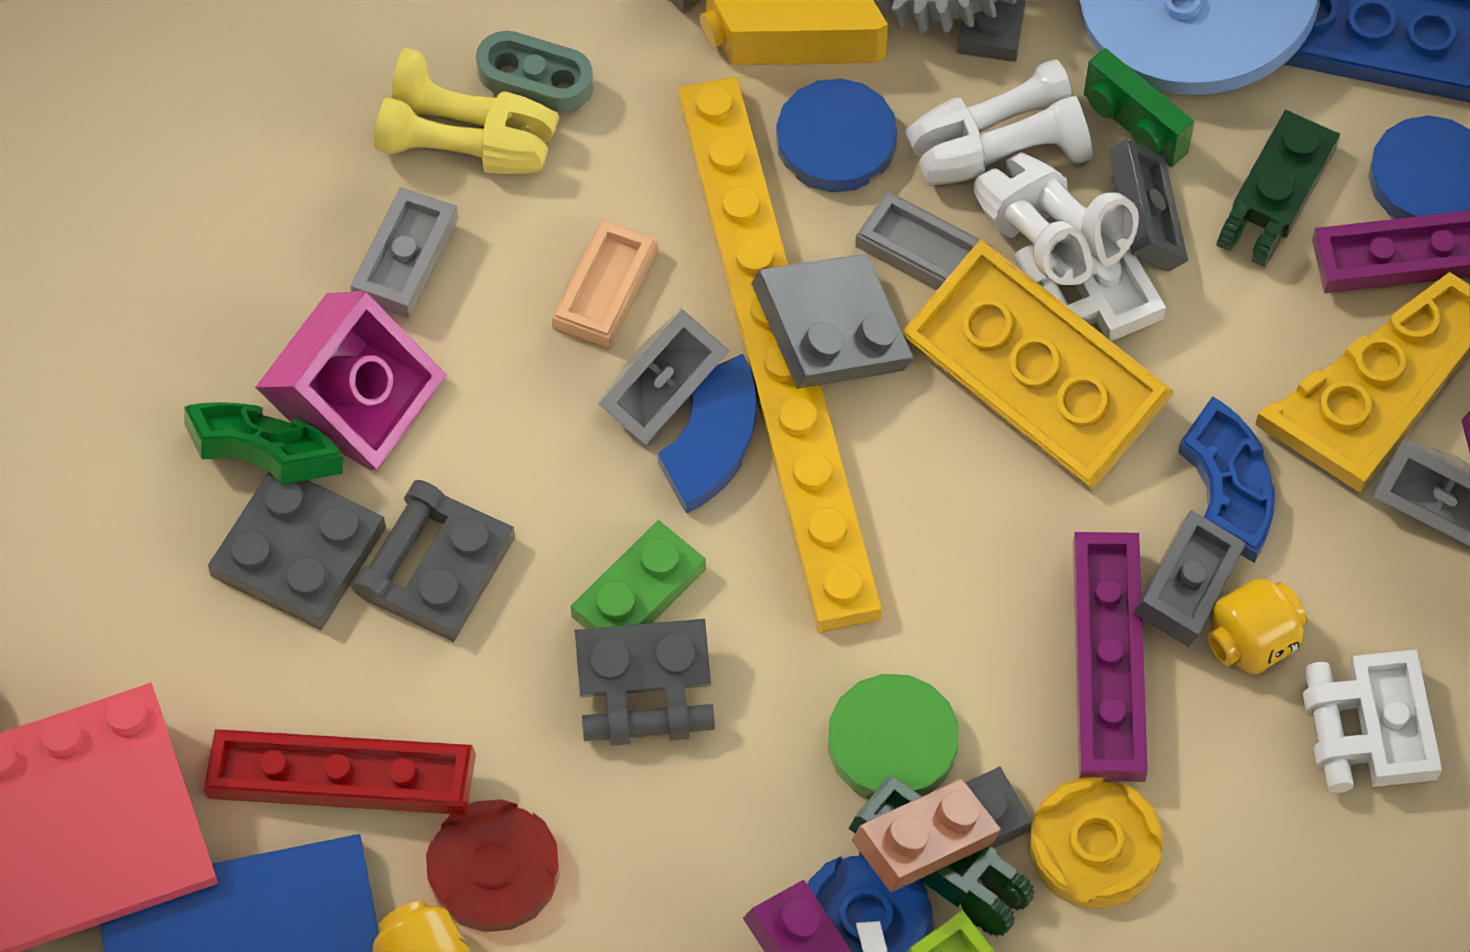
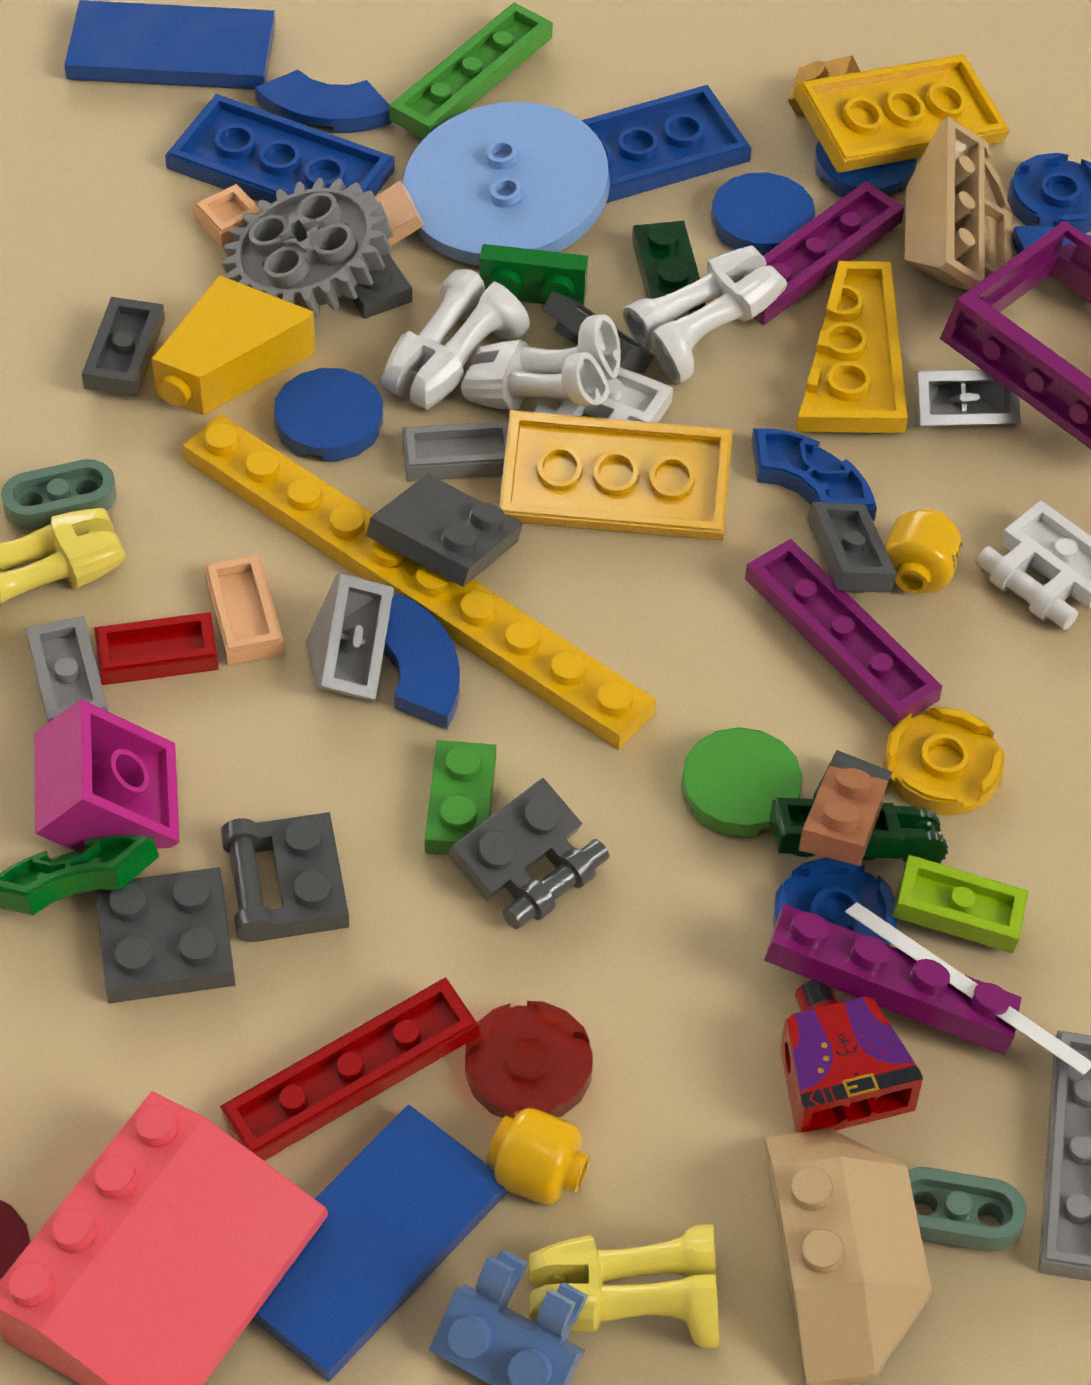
camera: 40 degrees left, 10 degrees down
(502, 274) = (156, 648): none -> red tile
(1317, 247) = (742, 291): none -> white piece

